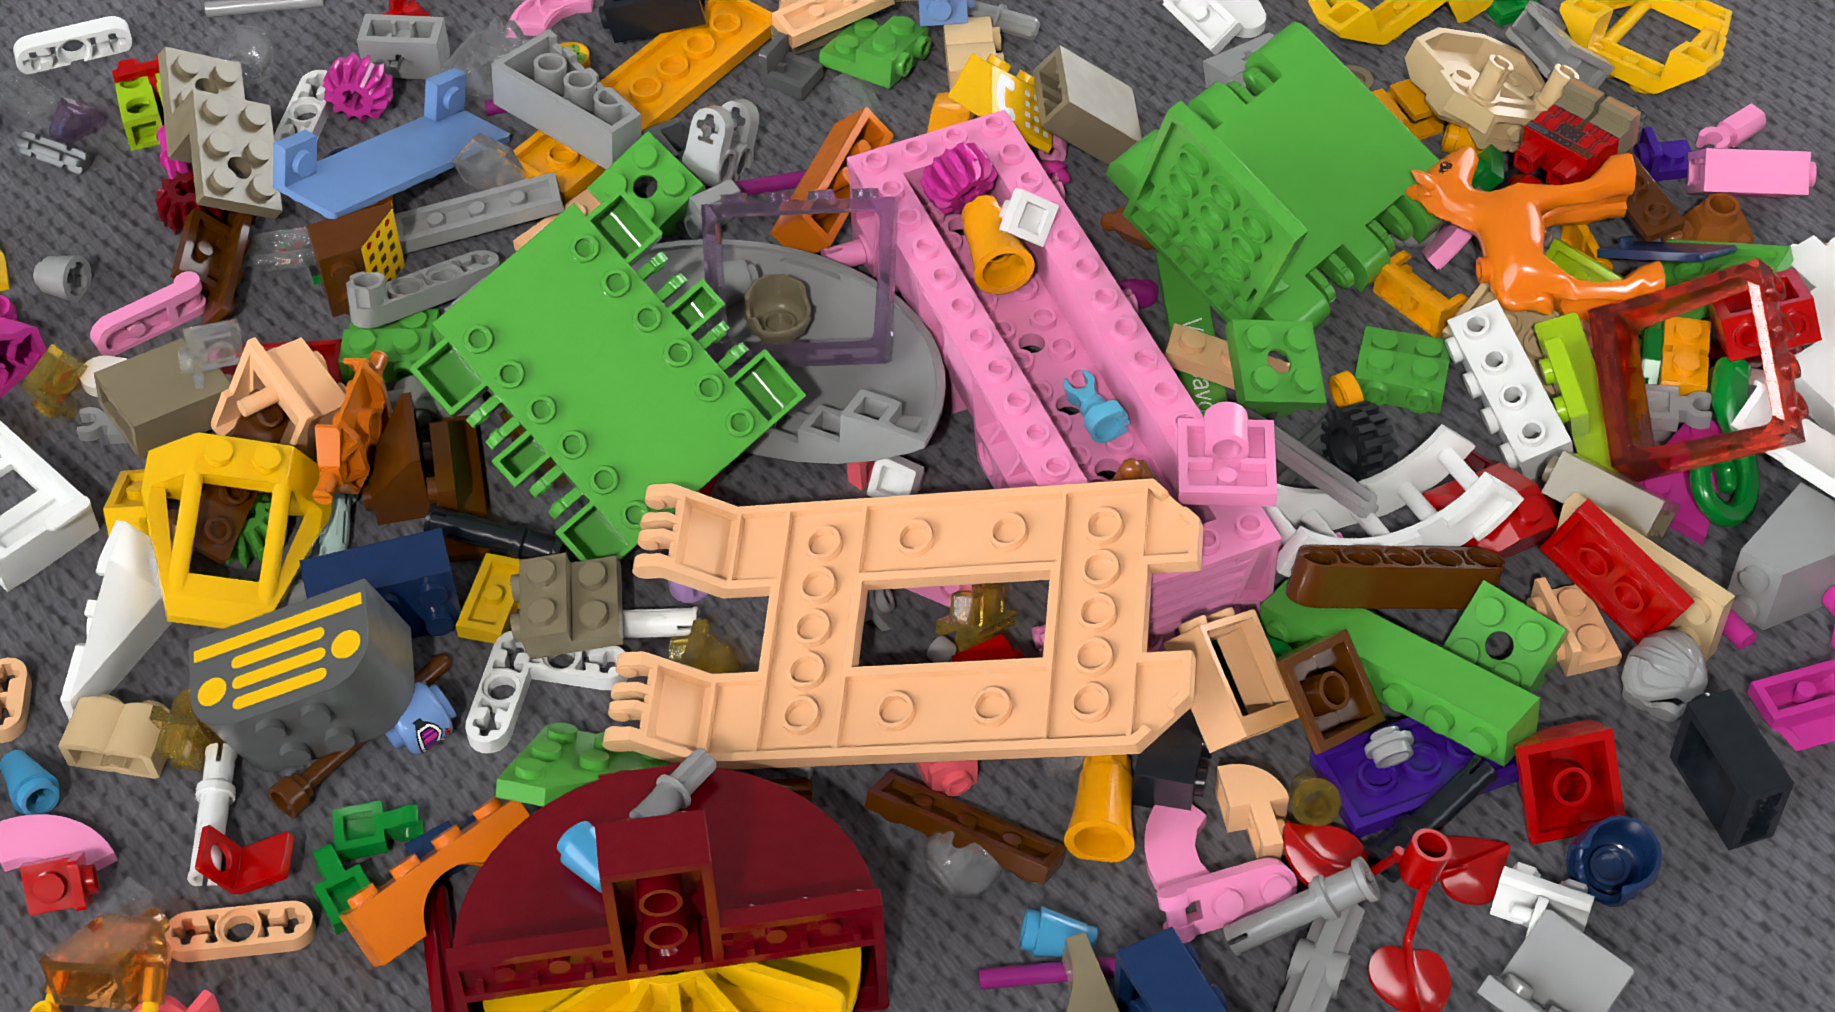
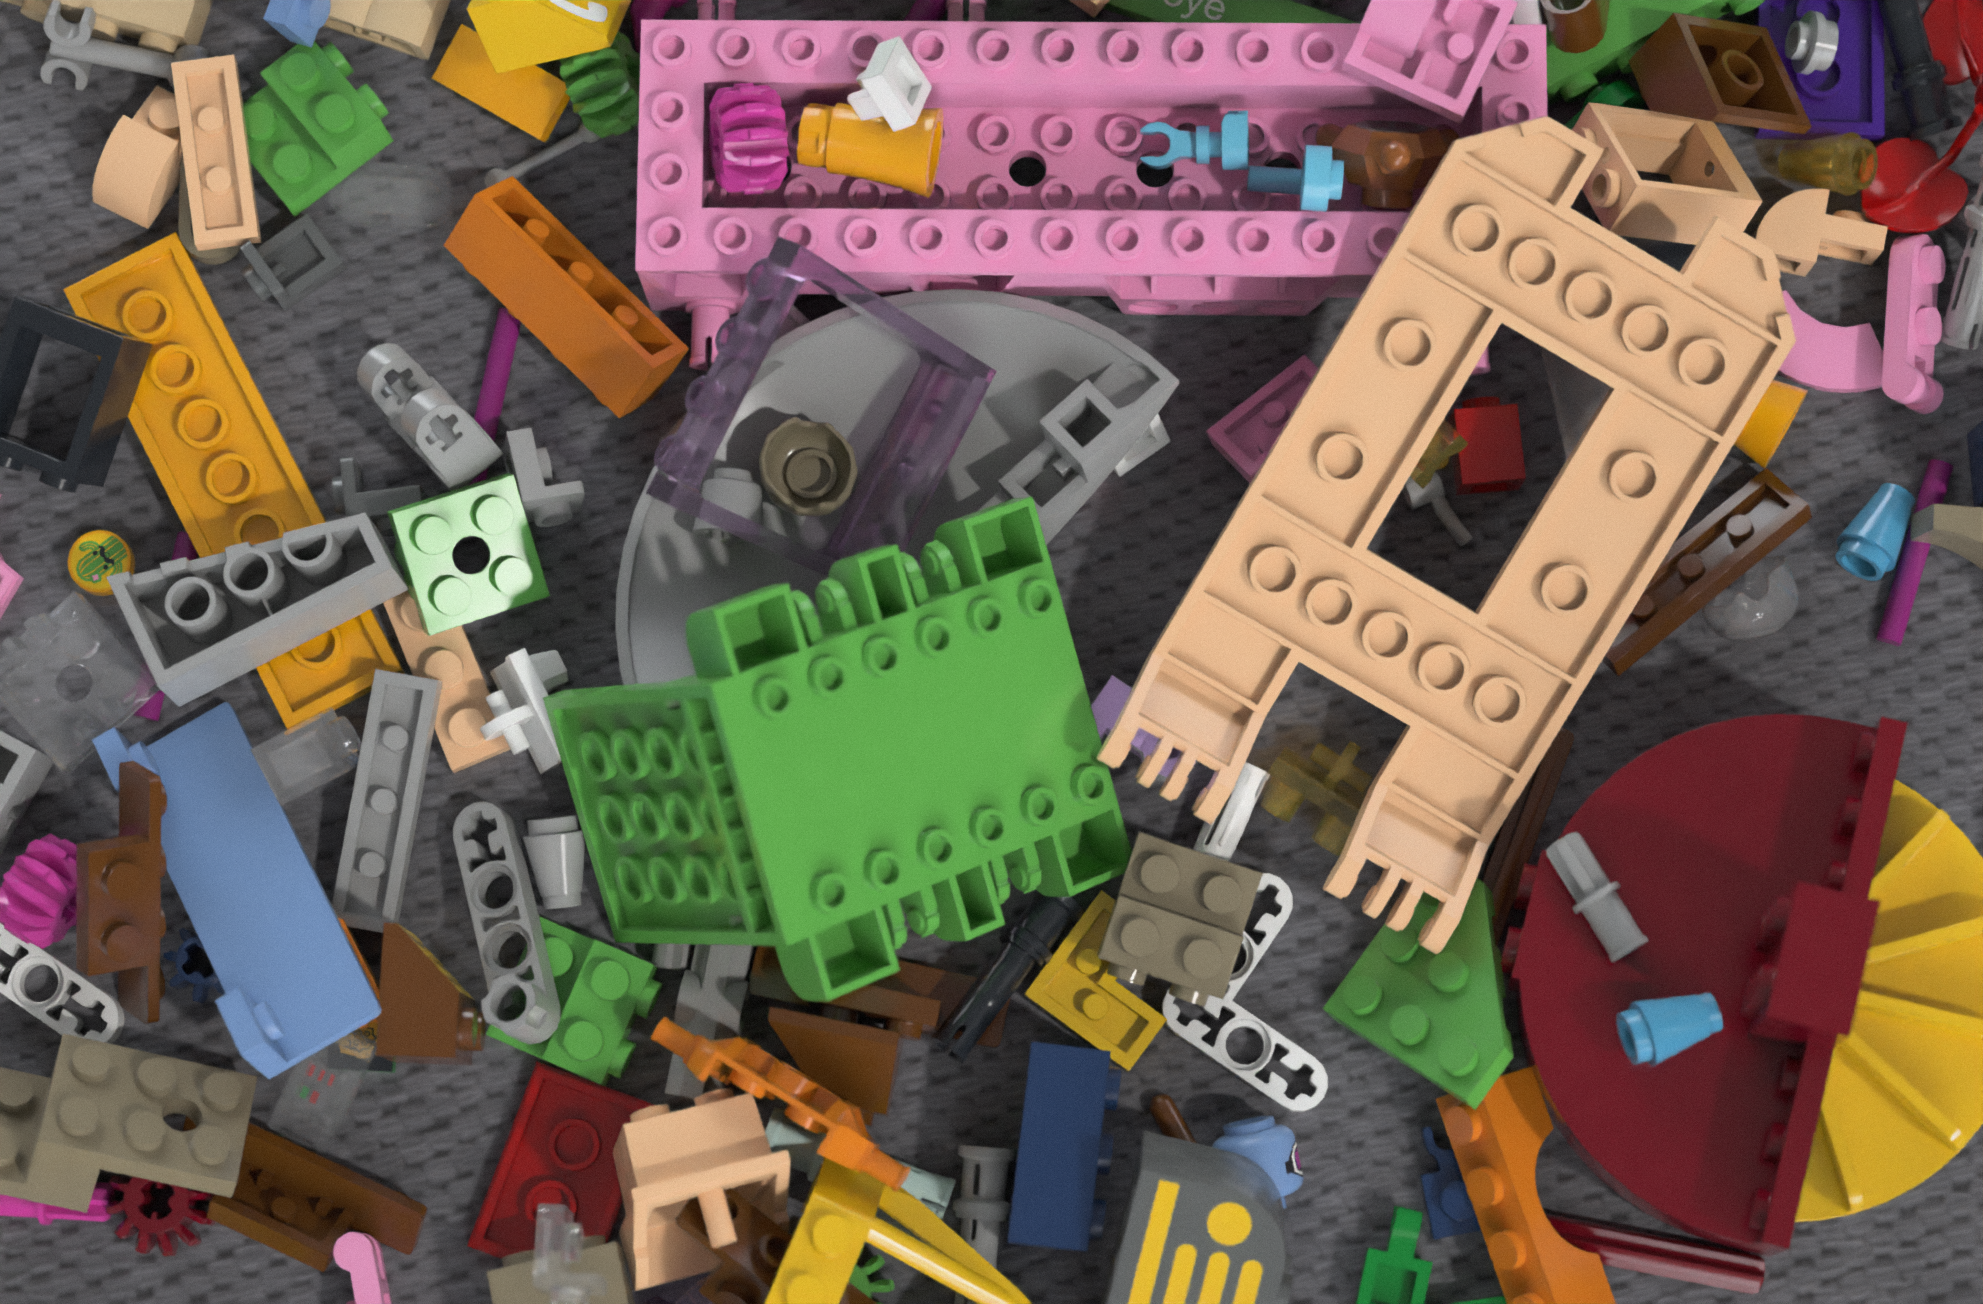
camera: 65 degrees left, 30 degrees up
(362, 98) = (121, 896): none -> reddish brown bracket
(1097, 451) = (1315, 182): none -> medium azure plate

